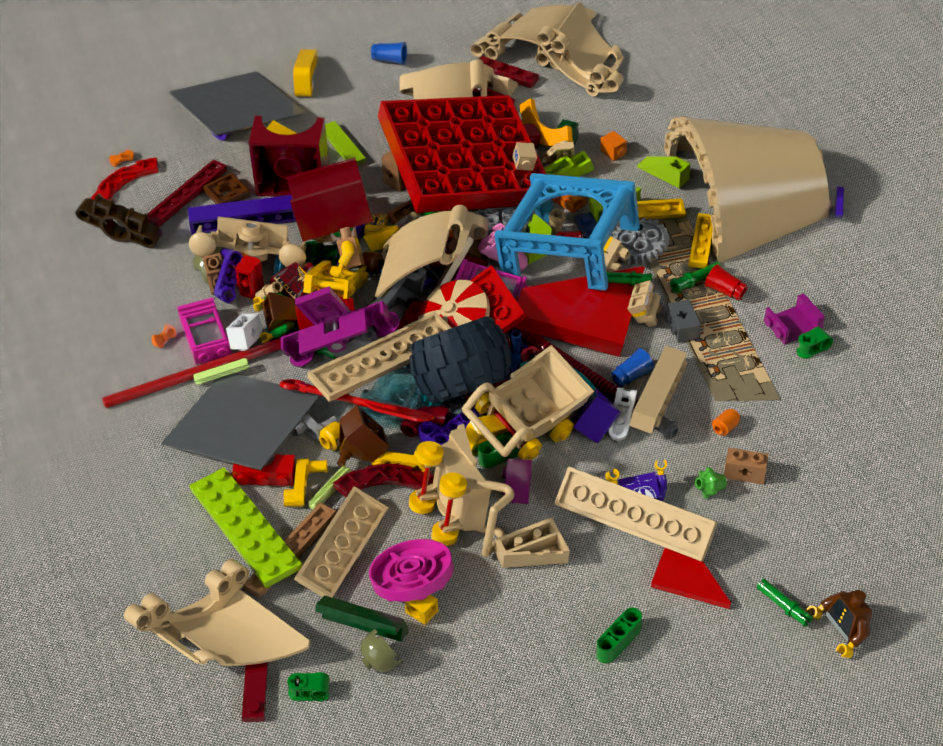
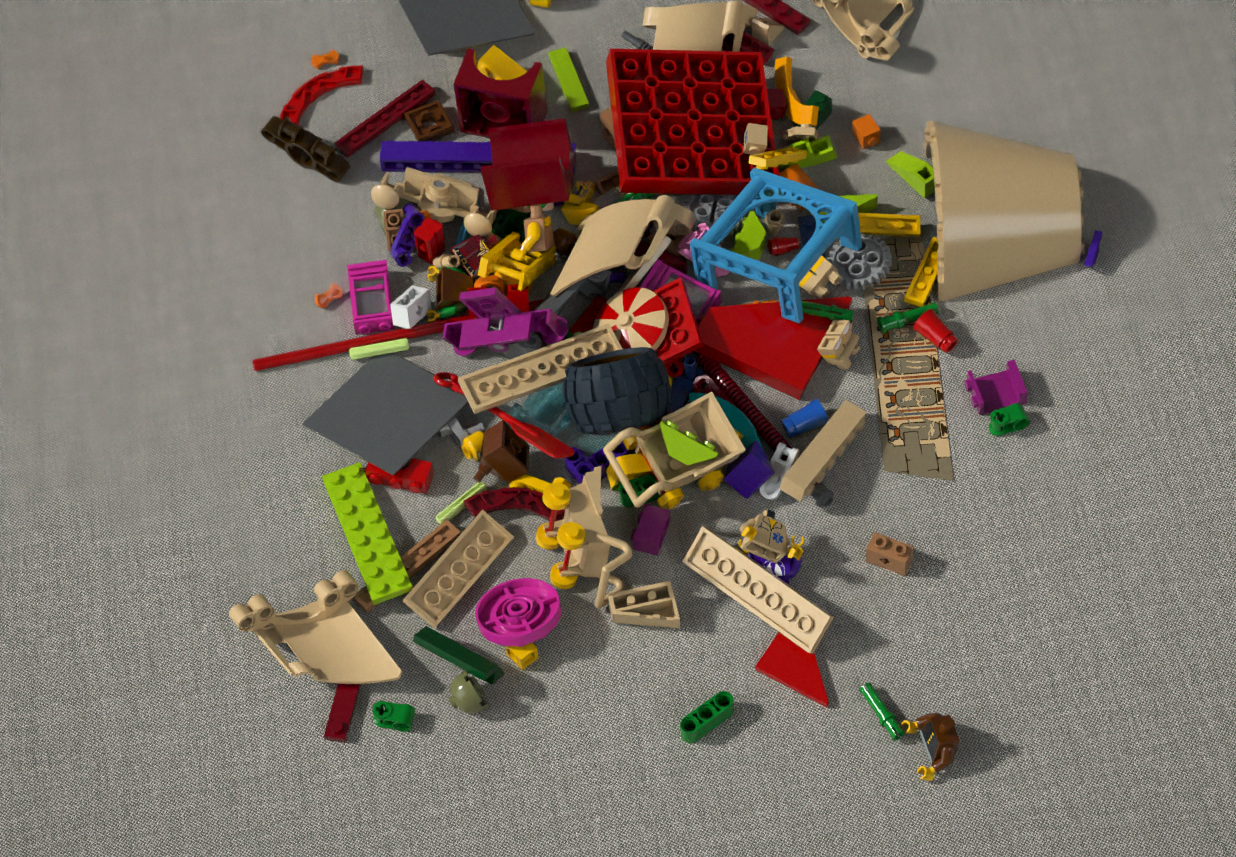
camera: 15 degrees right, 10 degrees up
(297, 496) = (427, 507): yellow beam -> none
(442, 417) = (577, 439): dark red cylinder -> none
(536, 395) = (684, 445): none -> lime slope
(549, 168) = (777, 157): none -> yellow plate
(634, 466) = (768, 538): none -> tan torso
(683, 321) = (876, 370): dark grey brick -> none
(710, 482) = (847, 566): bright green rock -> none
(726, 422) = (885, 499): orange brick -> none

